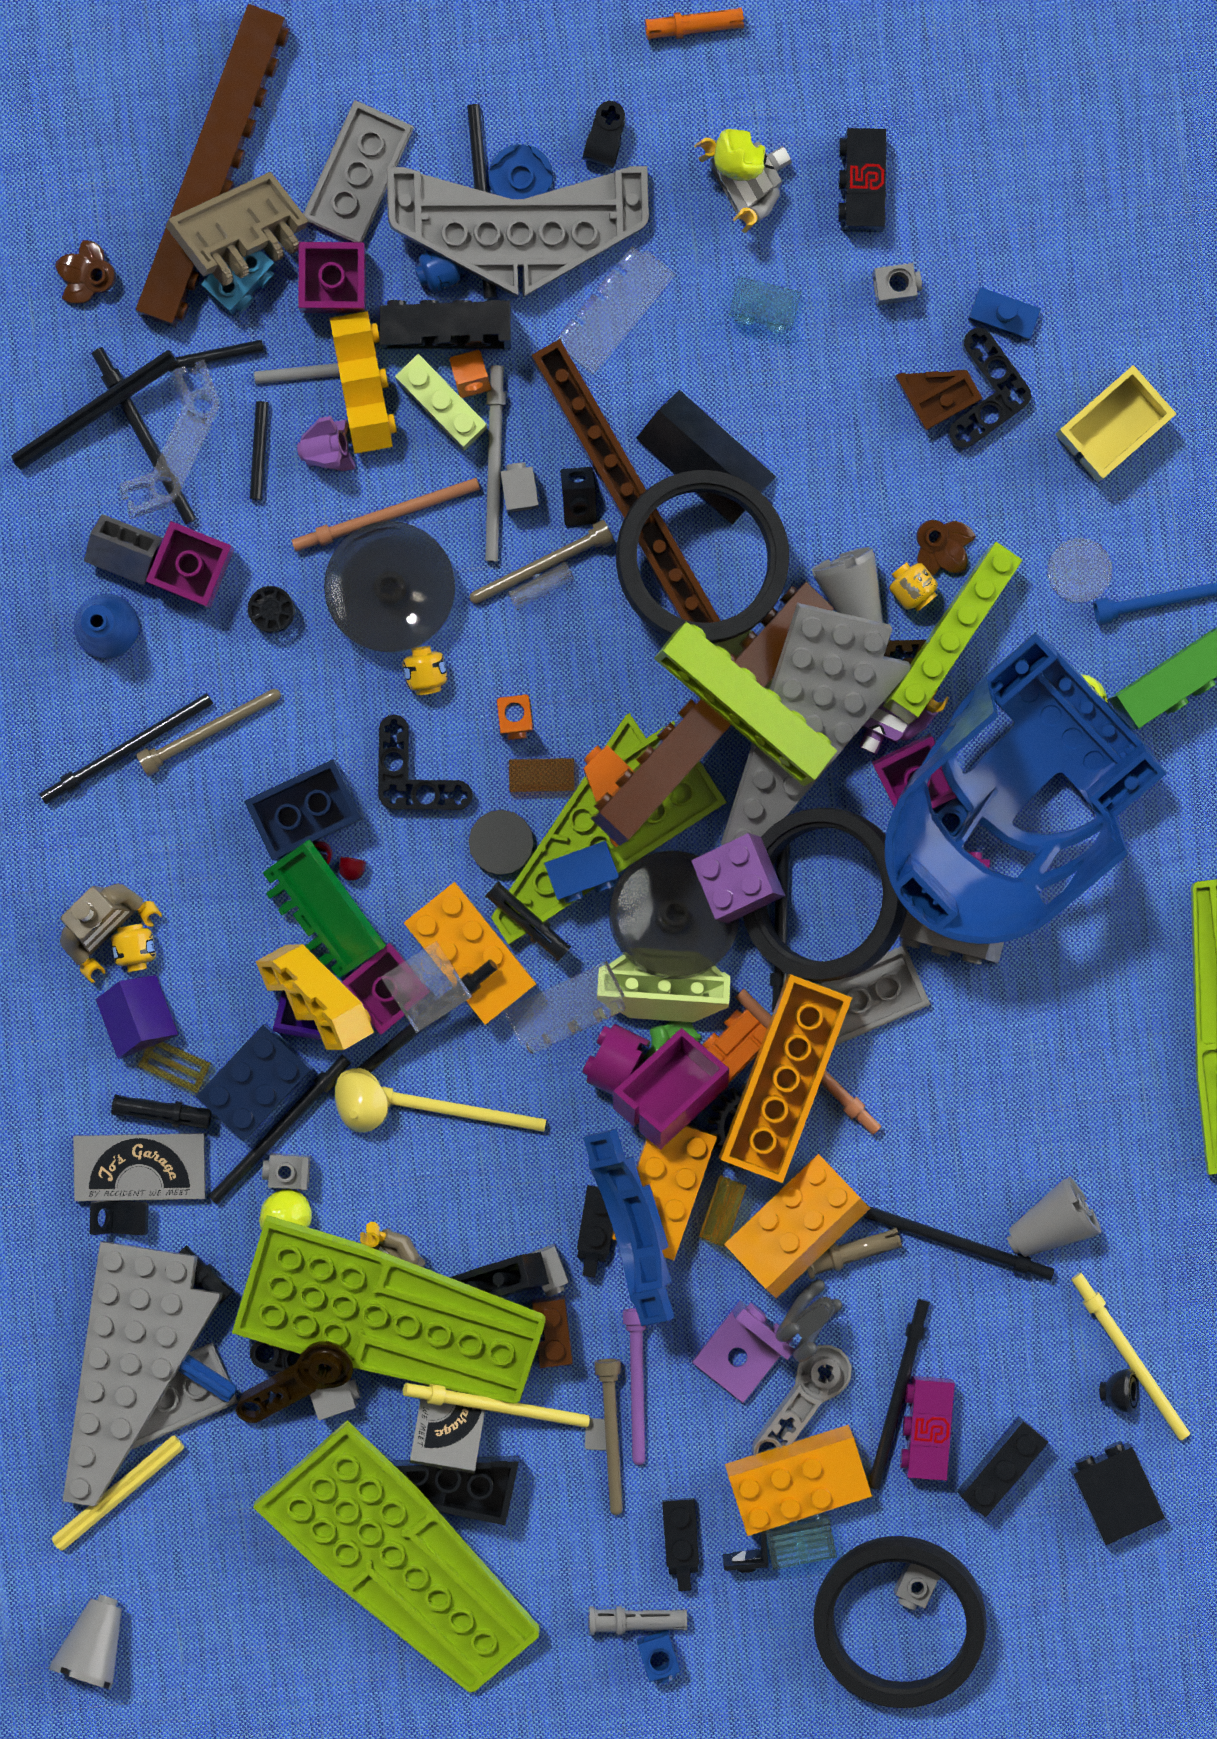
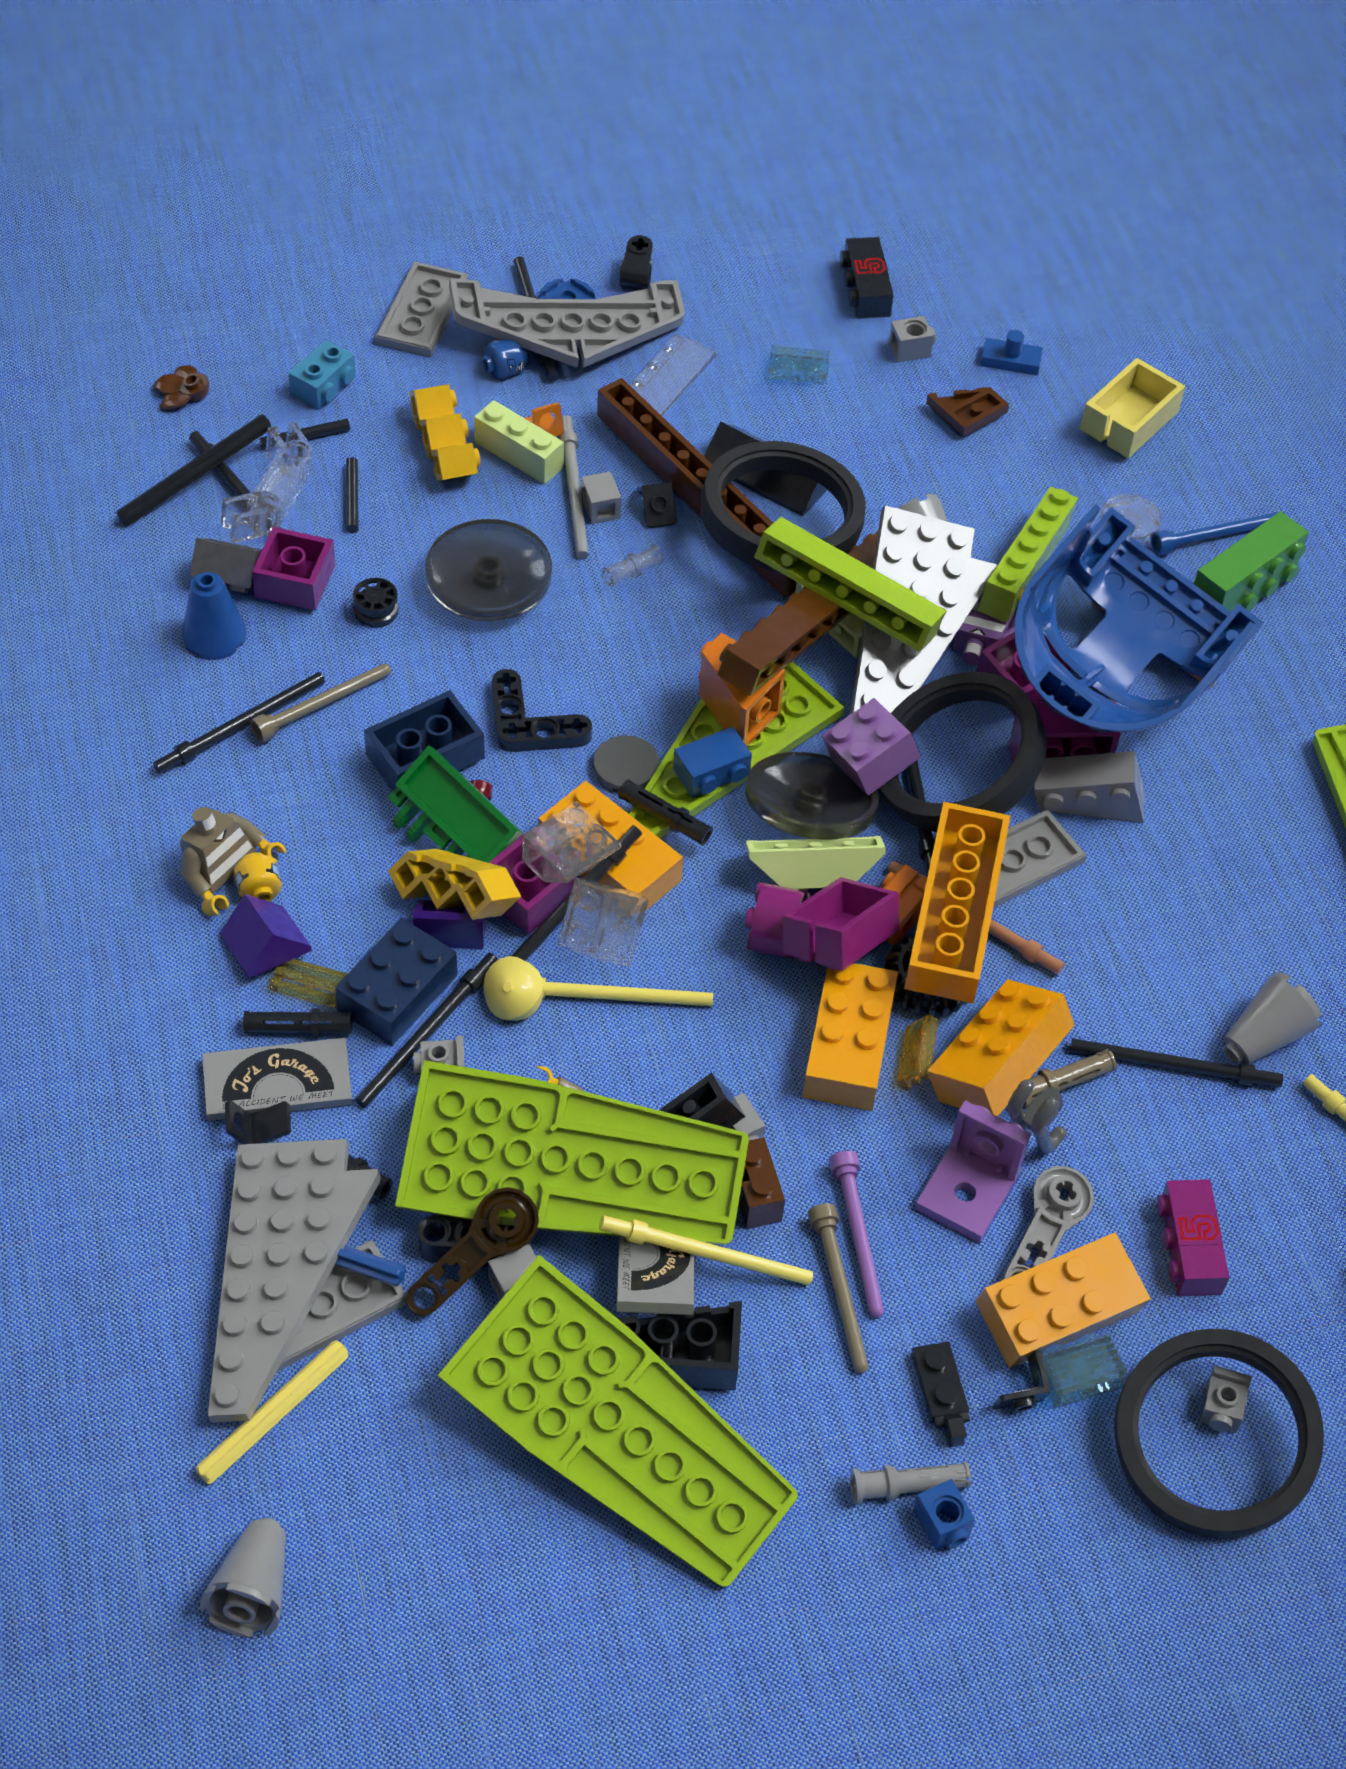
camera: 15 degrees left, 35 degrees down
(216, 156) = (290, 310): reddish brown brick -> none
(243, 218) = (315, 329): dark tan hinge -> none
(296, 373) = (382, 442): light grey bar -> none
(324, 535) = (421, 546): nougat bar -> none
(326, 445) = (413, 478): medium lavender brick -> none
(332, 277) = (406, 362): magenta brick -> none
(425, 670) = (531, 633): yellow head -> none
(445, 325) = (521, 384): black wedge -> none
(452, 1053) = (603, 921): none -> clear slope
(517, 729) = (625, 667): orange bracket -> none
(541, 775) = (657, 708): clear orange tile -> none
(566, 1008) = (721, 867): clear windscreen -> none
(594, 1232) = (784, 1086): black hinge -> none
(595, 1435) = (822, 1294): light grey sticker -> none
(598, 536) = (681, 526): dark tan piece -> none
(634, 1225) = (824, 1038): blue piece -> none
(693, 23) = (700, 197): orange pin -> none
(737, 156) = (754, 251): neon yellow hair -> none
(751, 198) = (762, 279): torso -> none
(913, 586) = (988, 533): yellow head -> none
(915, 1332) = (1151, 1151): black bar -> none
(947, 549) = (1000, 510): reddish brown plate -> none
(998, 399) = (1031, 405): black beam -> none
(1002, 1466) = (1285, 1265): black brick -> none

